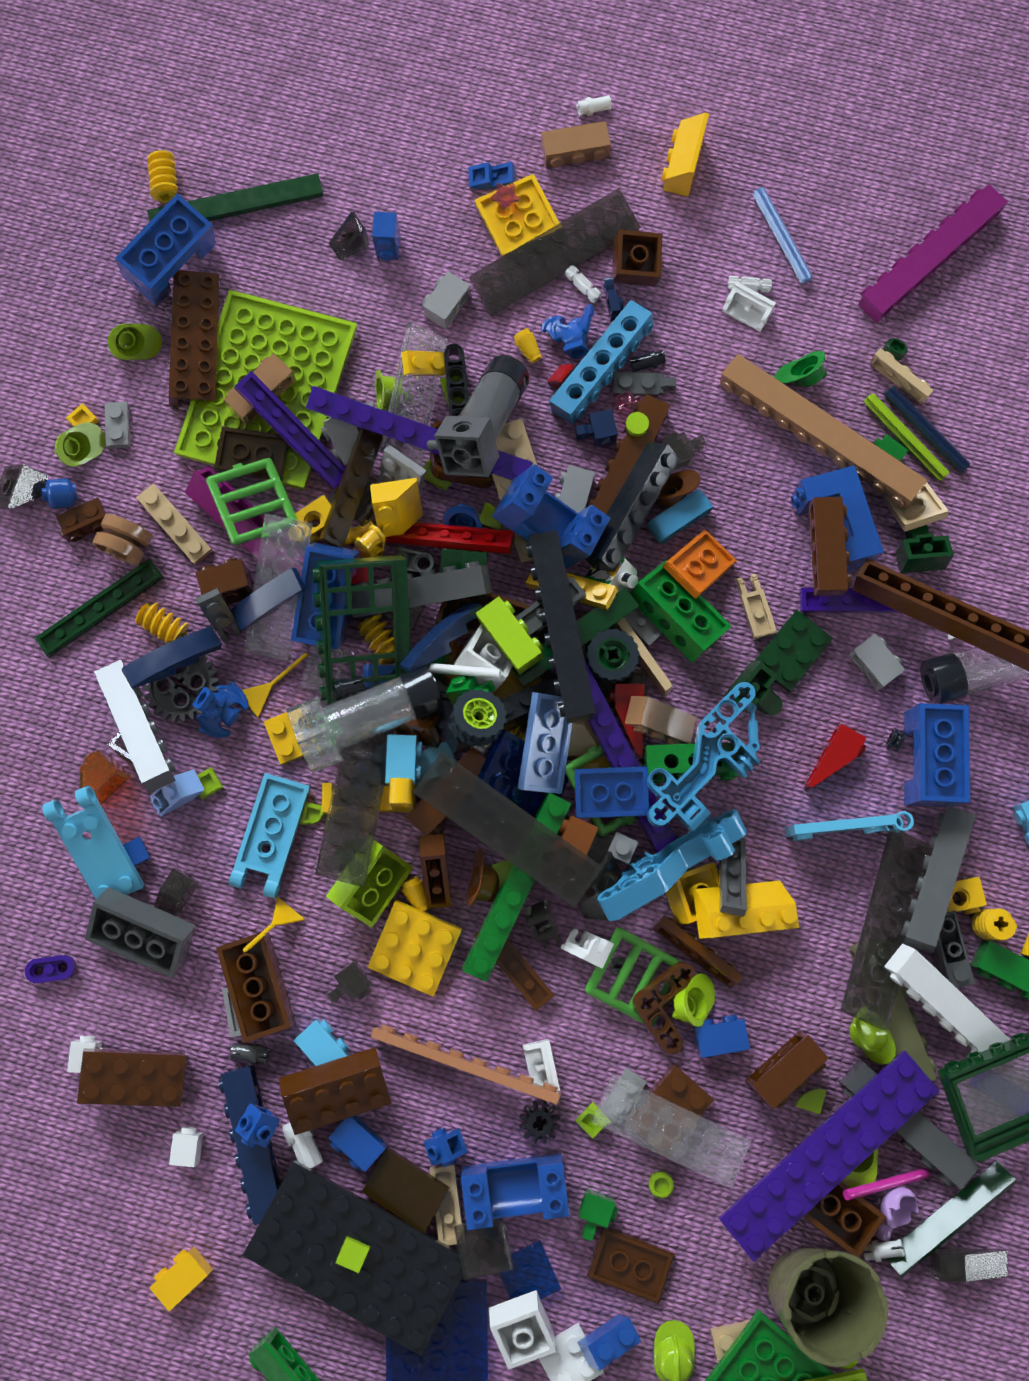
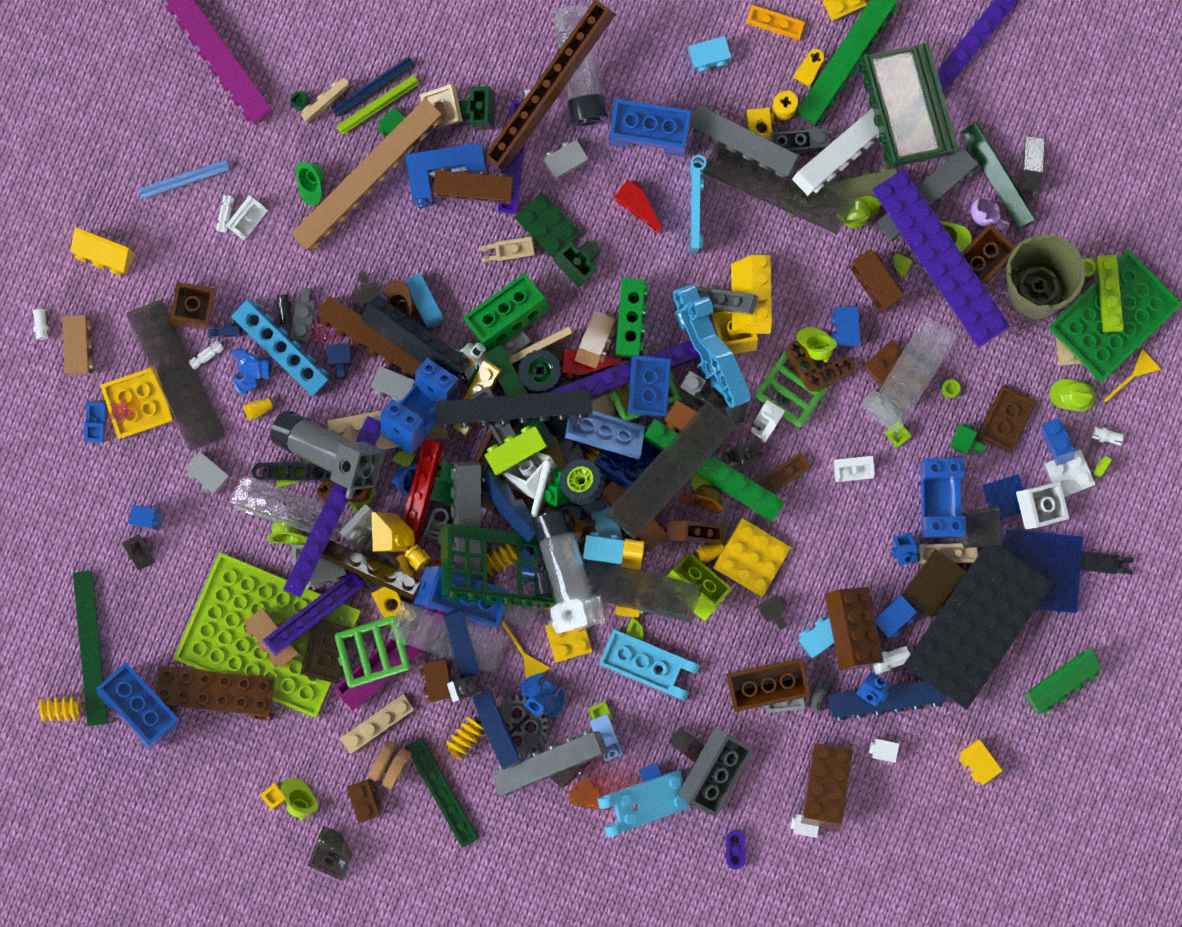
camera: 85 degrees left, 5 degrees up
(59, 493) = (340, 817): blue head -> none
(117, 425) = (282, 766): light grey plate -> none
(134, 341) = (211, 745): lime piece -> none
(282, 915) = (714, 659): yellow piece -> none
(352, 1254) = (975, 625): lime tile -> none
(423, 363) = (268, 497): yellow plate -> none
(476, 1066) = (841, 532): nougat plate -> none
(547, 1125) = (890, 480): black gear -> none
(560, 375) = (287, 384): red slope -> none
(637, 424) = (343, 325): lime tile -> none
(700, 563) = (468, 290): orange tile -> none
(702, 955) = (783, 332): reddish brown plate -> none
(707, 752) = (628, 306): dark azure beam -> none
(883, 1250) = (1015, 228): white pin -> none
(885, 1184) = (967, 218): dark pink bar -> none
(895, 740) = (630, 155): black bush -> none

